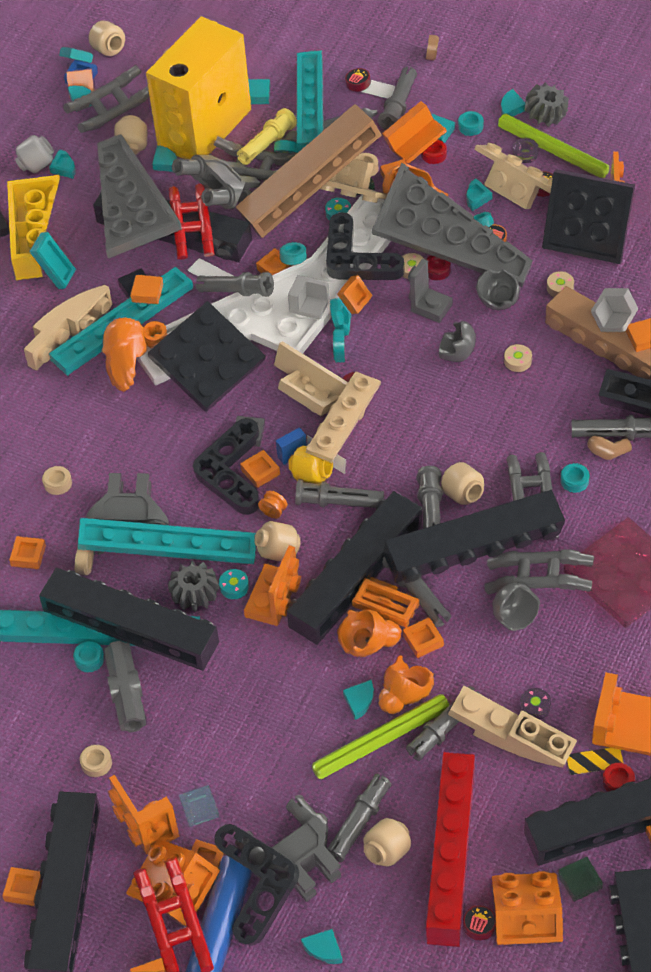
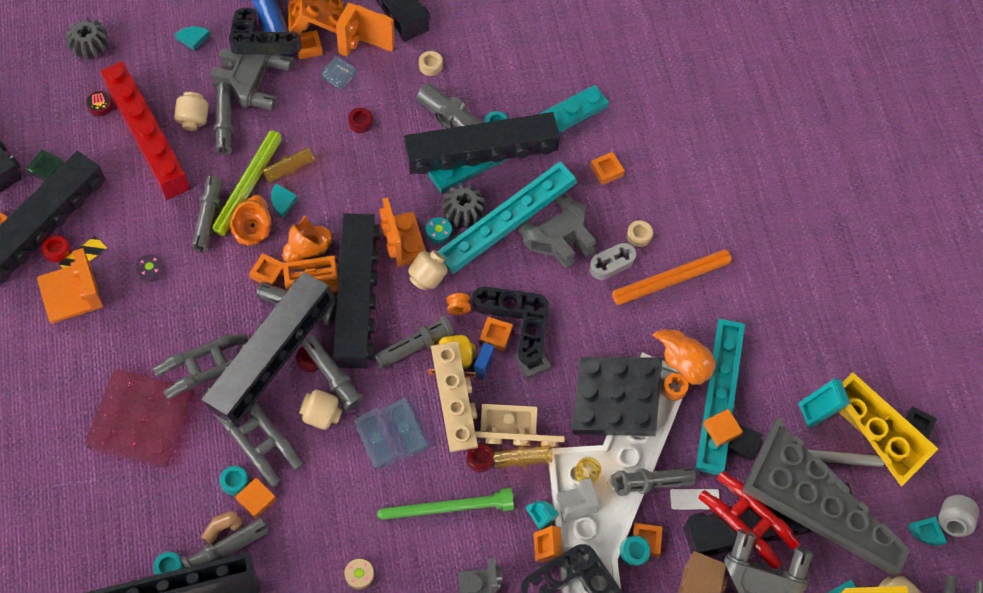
camera: 135 degrees right, 10 degrees up
(64, 321) = (760, 362): tan slope -> none
(67, 428) = (671, 277): none -> orange axle
(76, 238) = (848, 458): none -> light grey bar
(103, 466) = (615, 265): none -> light grey beam
(218, 739) = (360, 120): none -> dark red tile
(281, 309) = (588, 461): none -> clear yellow bush
(321, 356) = (523, 456): none -> clear yellow pin
(328, 727) = (288, 165): none -> clear yellow pin
(339, 345) = (522, 485): teal tile -> none
(362, 343) = (501, 500): none -> bright green piece
(414, 440) = (391, 433): none -> clear light blue slope
(459, 344) = (418, 546): dark grey hair -> none
(512, 732) = (148, 235): tan slope -> none
(515, 606) = (210, 326): dark grey hair -> none
(527, 908) = (73, 127): orange bracket -> none
(564, 453) = (255, 498): none -> orange tile

